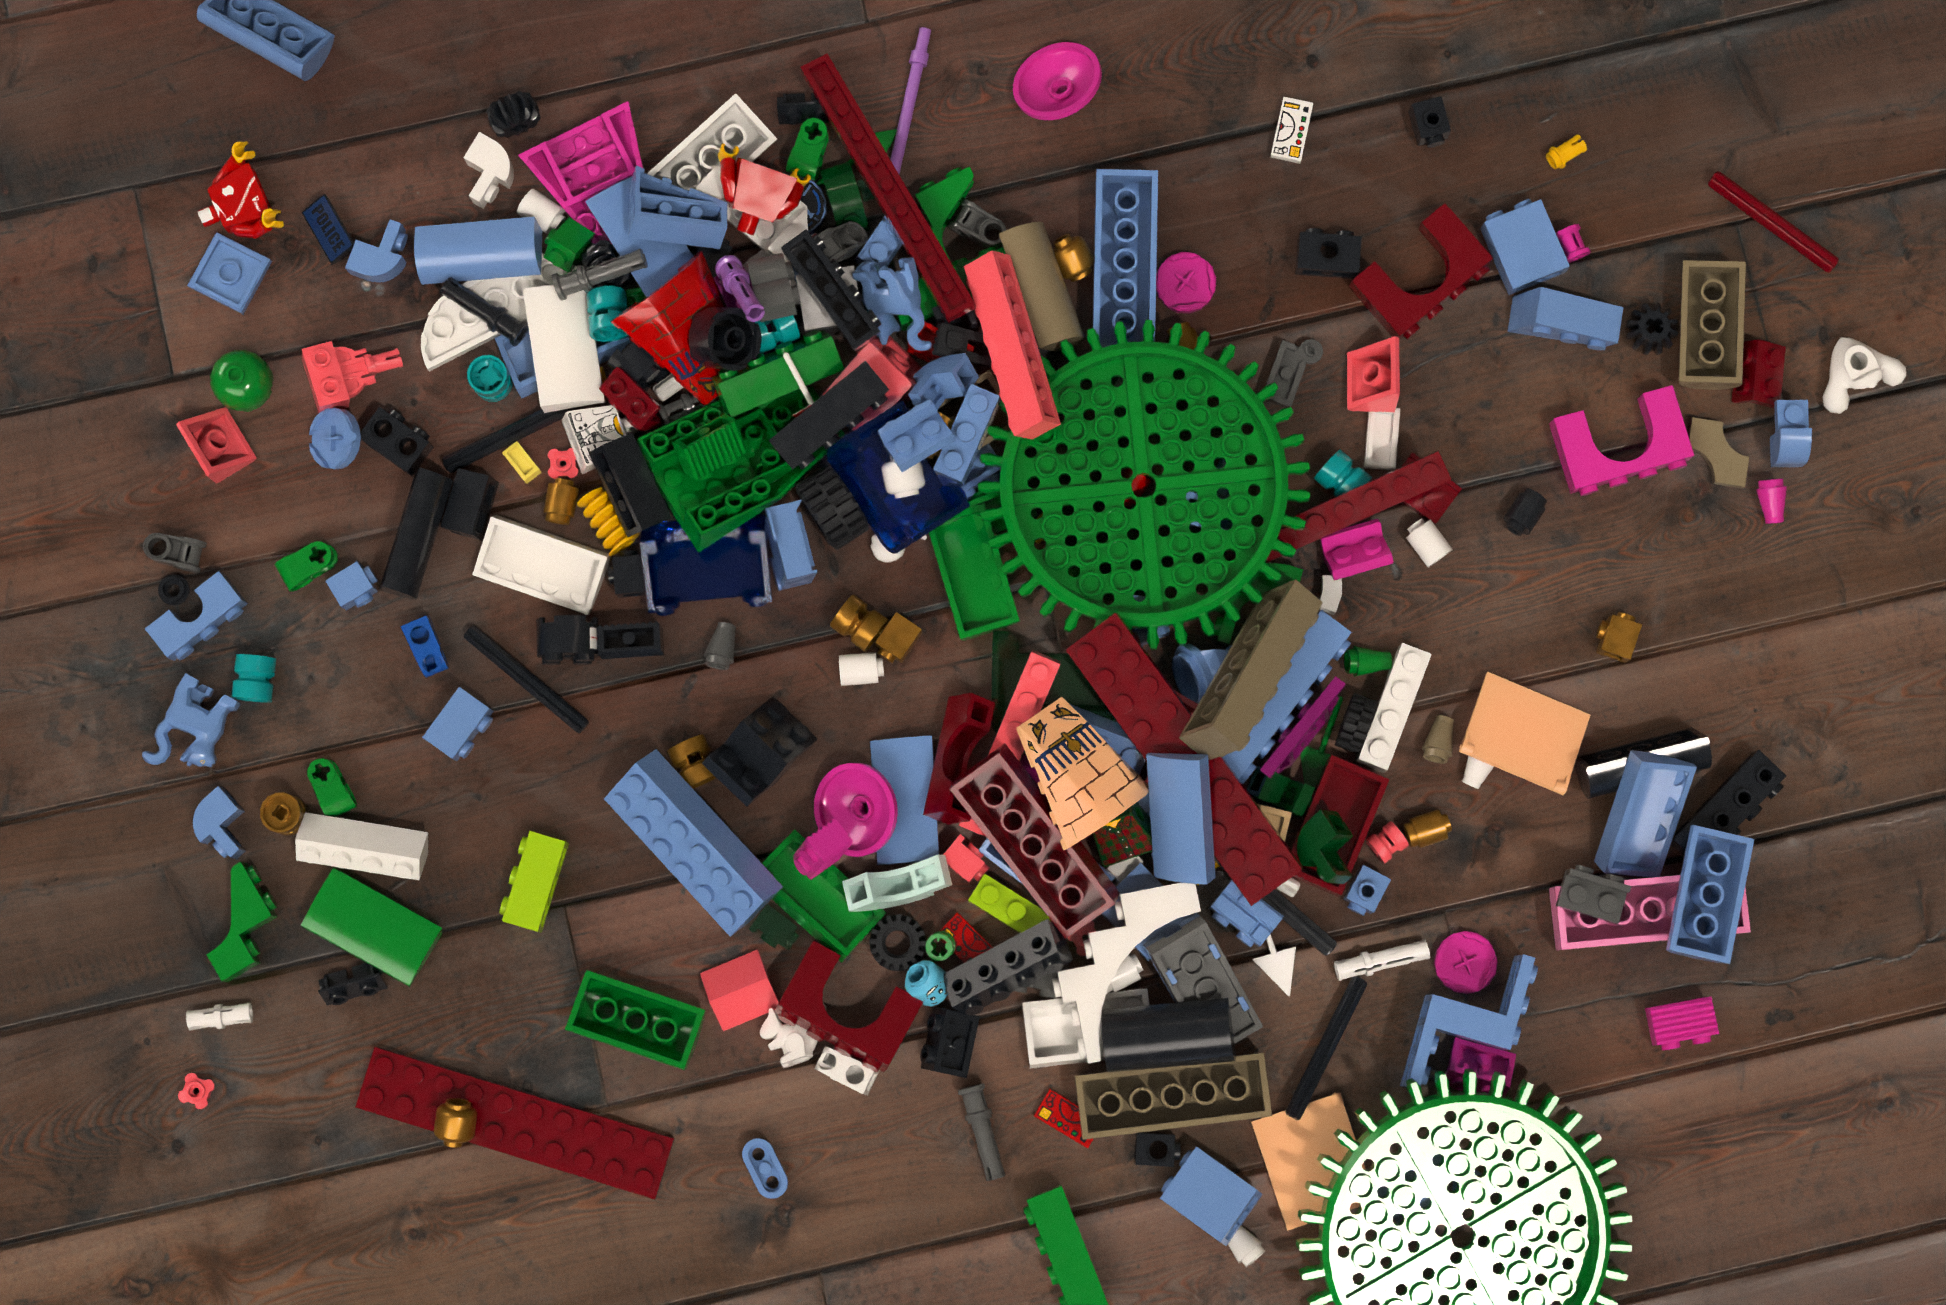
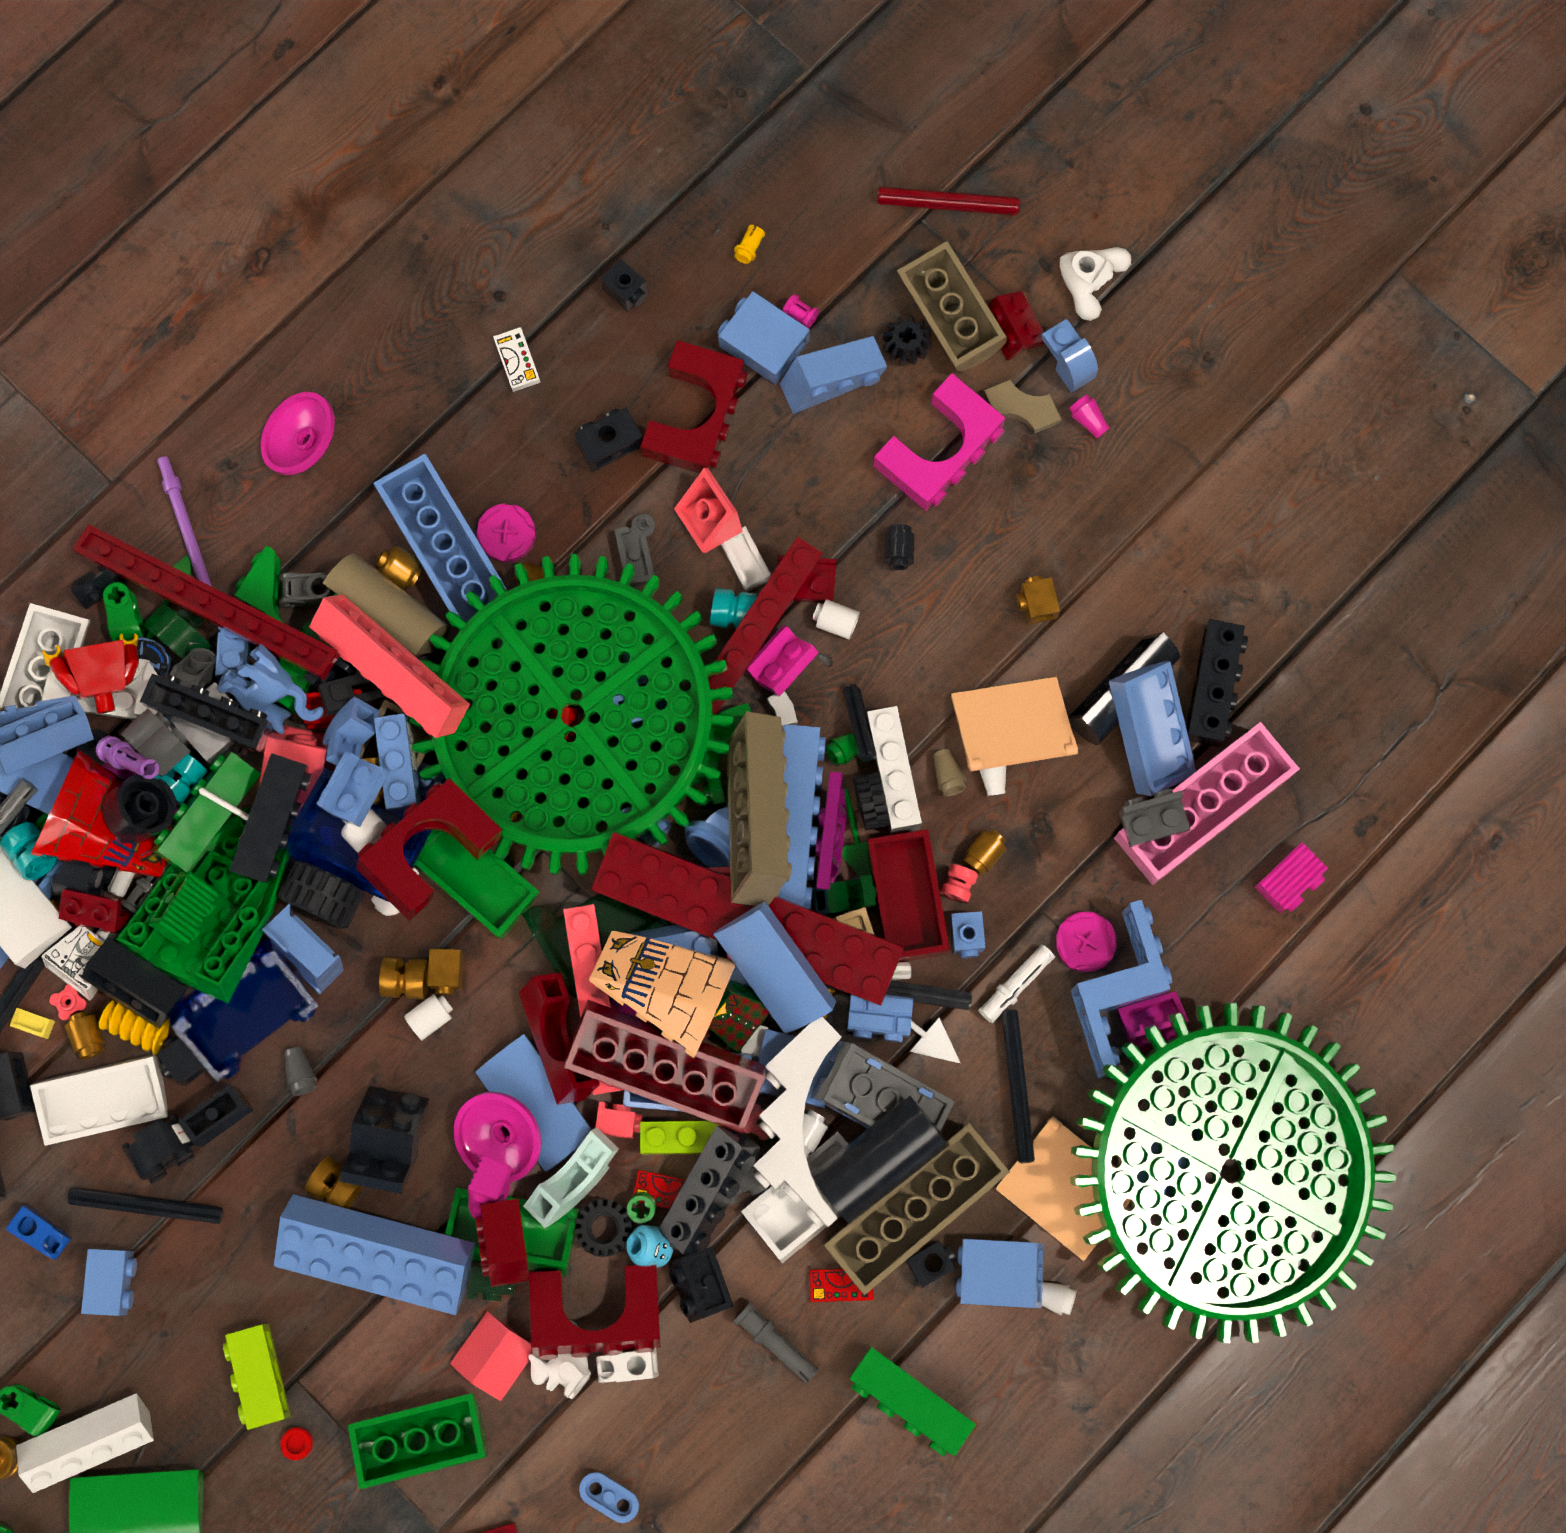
camera: 35 degrees left, 5 degrees down
(534, 958) = (297, 1443): none -> red tile
(806, 902) = (502, 1243): none -> dark red brick
(983, 503) = (444, 810): none -> dark red arch
(1319, 846) = (904, 917): dark green brick -> none
(1389, 647) = (859, 723): none -> black axle
(1710, 895) = (1249, 758): medium blue brick -> none

